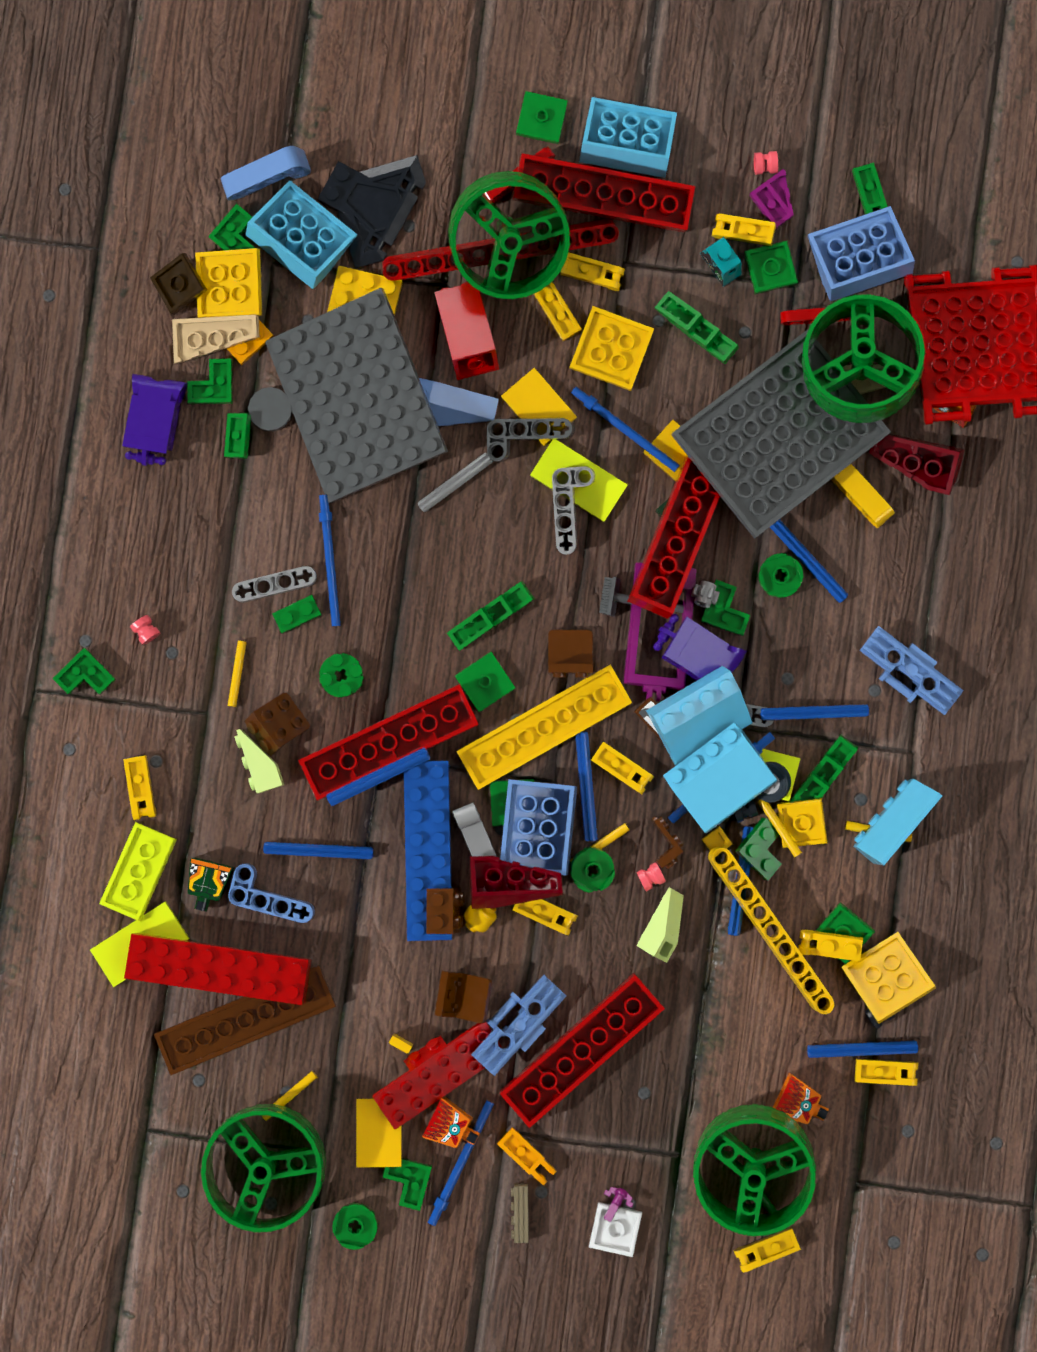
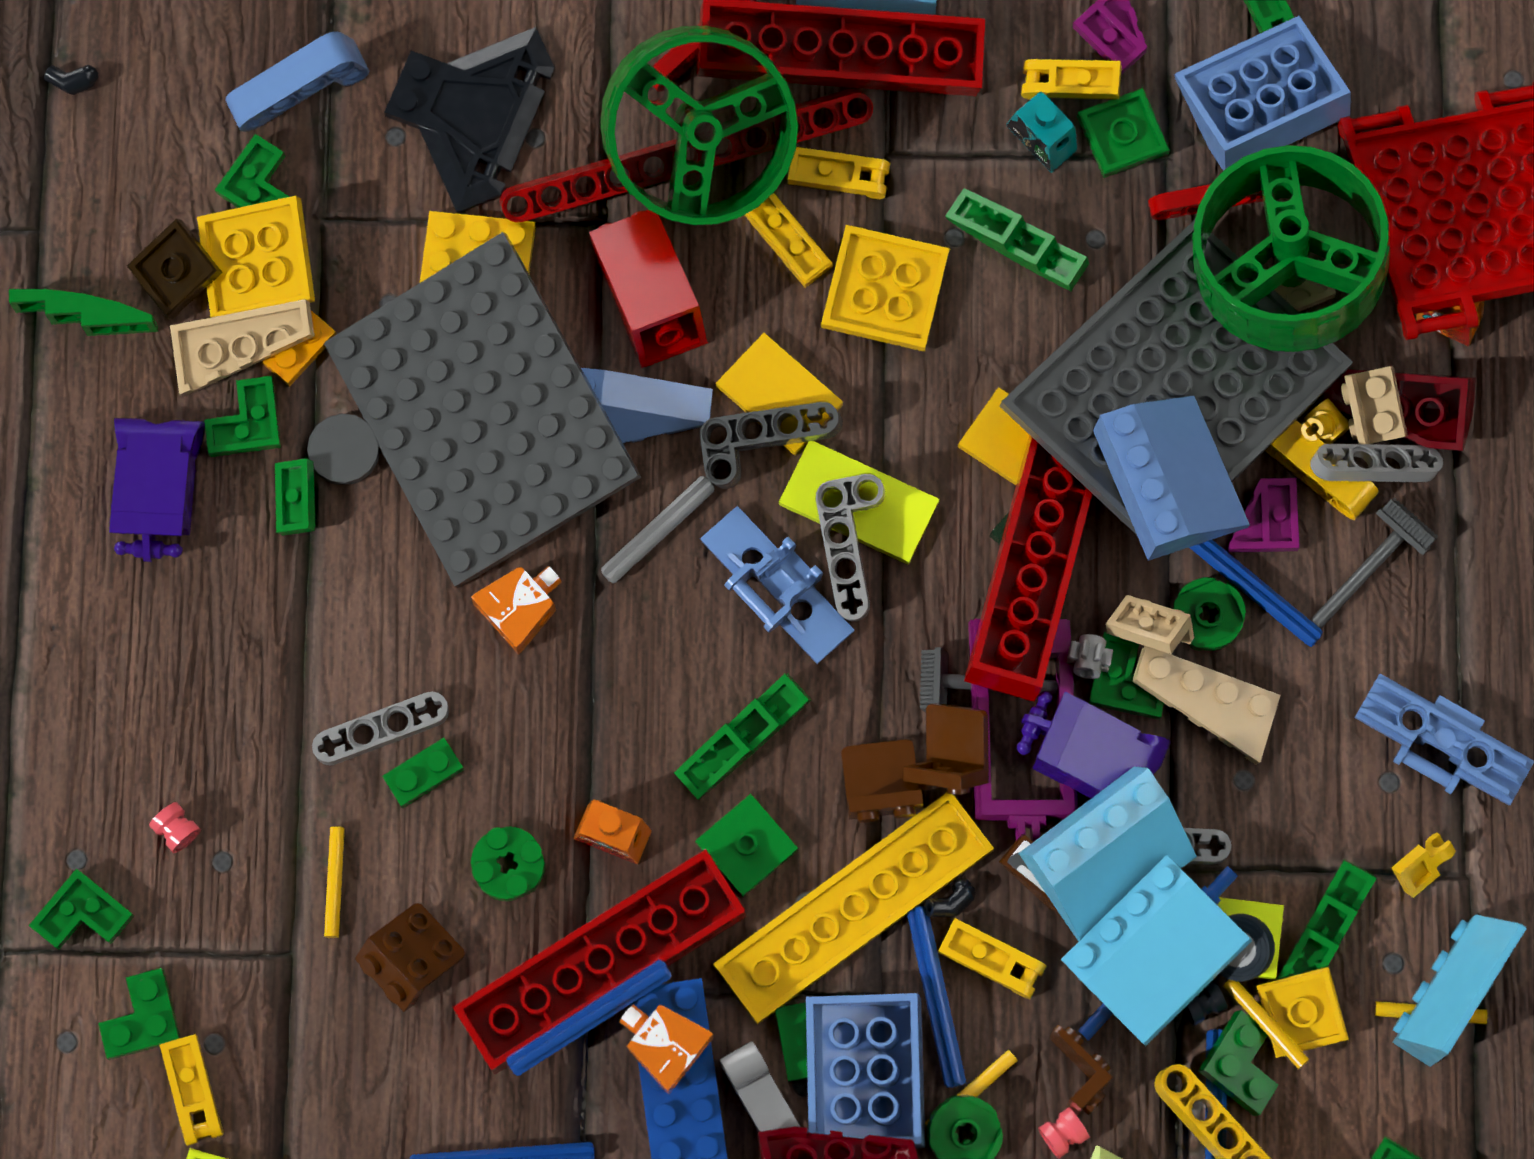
camera: 10 degrees left, 10 degrees down
(119, 745) = (149, 1024): none -> green plate
(127, 156) = (74, 81): none -> black arm
(127, 306) = (94, 313): none -> green slope
(263, 769) = (394, 1031): yellowish green slope -> none
(300, 234) = (362, 169): medium azure slope -> none
(326, 518) = (453, 612): blue bar -> none
(365, 519) = (518, 604): none -> orange torso
(406, 664) = (613, 831): none -> orange torso
(420, 798) = (665, 1043): none -> orange torso
(527, 521) = (783, 577): none -> medium blue piece
(592, 404) = (864, 378): blue bar -> none
(604, 733) = (953, 906): none -> black arm
(616, 642) = (954, 750): none -> reddish brown bracket
(717, 838) = (1163, 1056): yellow tile -> none
(744, 579) = (1150, 624): none -> tan bracket
(768, 491) = (1169, 474): none -> medium blue slope
(780, 632) = (1221, 704): none -> tan wing
(814, 712) = (1296, 827): blue axle -> none
(826, 521) = (1271, 518): none -> magenta wing
(868, 467) = (1325, 423): none -> yellow pin
(885, 744) = (1420, 865): none -> yellow plate
(895, 492) = (1376, 457): none -> light grey beam
(899, 460) = (1374, 406): none -> tan bracket
(907, 537) = (1405, 527): none -> dark grey piece

